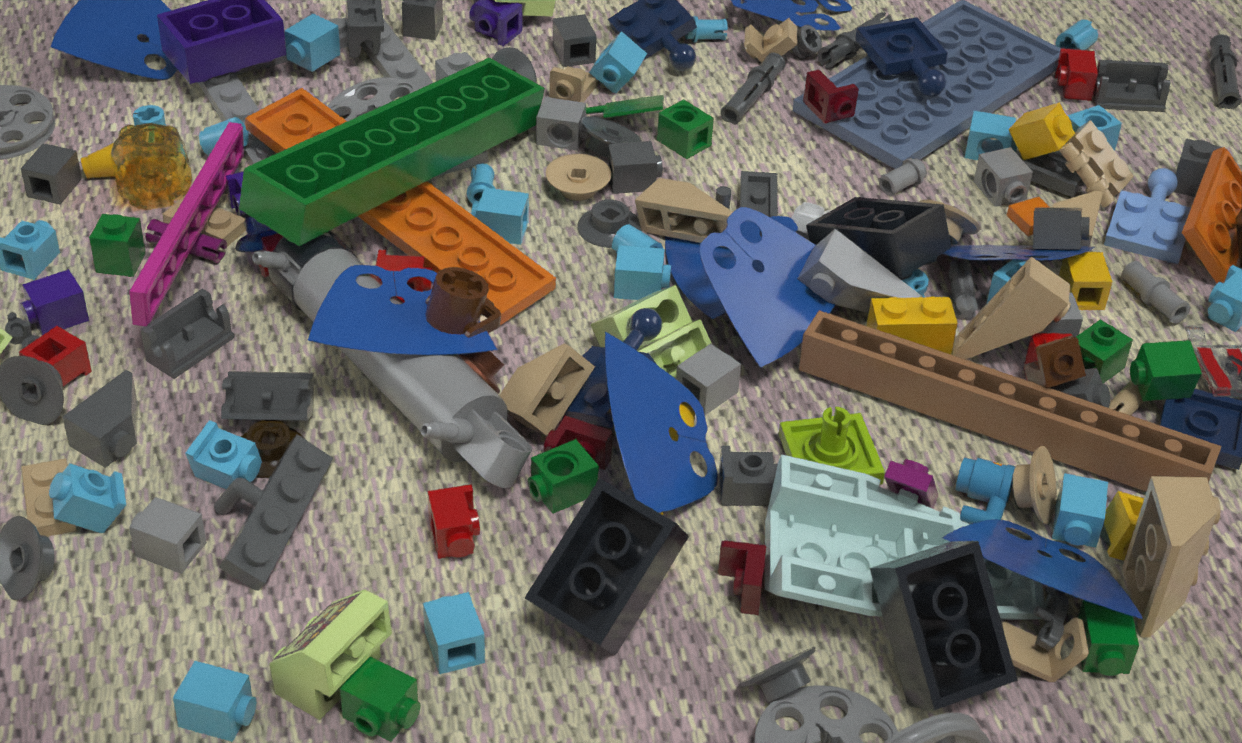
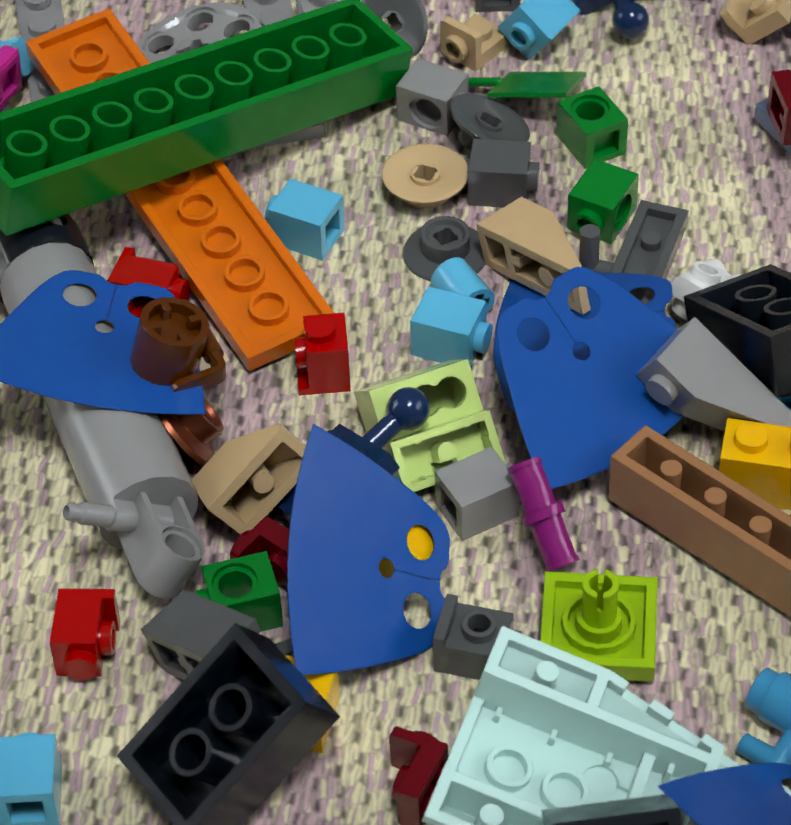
camera: 20 degrees right, 5 degrees up
(481, 178) = (301, 165): medium azure pin -> none
(545, 507) = (189, 630): none -> dark grey hinge
(556, 304) = (323, 355): none -> red brick
(714, 169) = (603, 198): none -> green brick
(737, 106) = (744, 52): dark grey pin -> none
(765, 383) = (543, 513): none -> magenta pin
(912, 478) = (675, 693): magenta plate -> none

